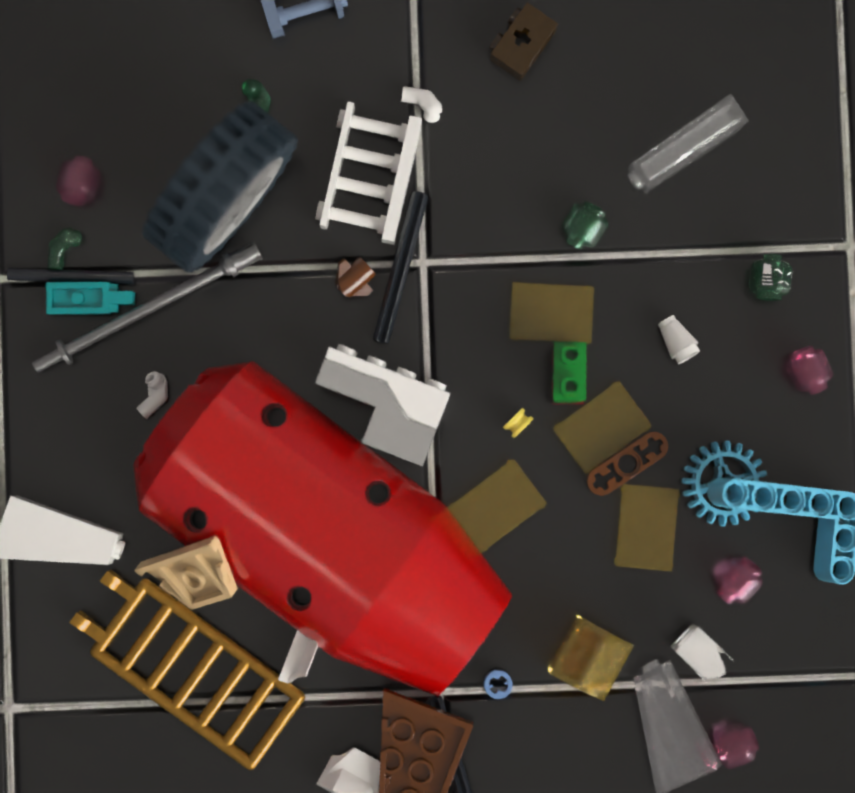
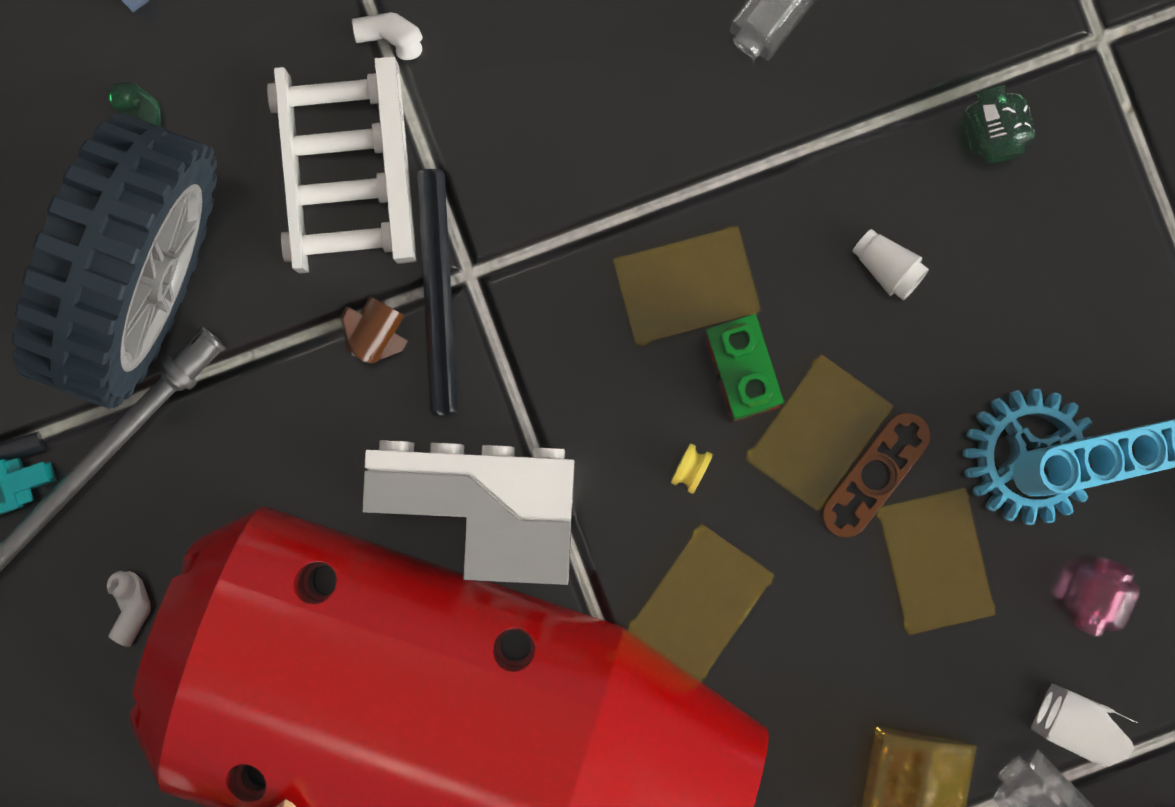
camera: 15 degrees left, 0 degrees up
(584, 225) = (693, 137): clear green head -> none
(809, 370) = (1103, 244): clear pink head -> none

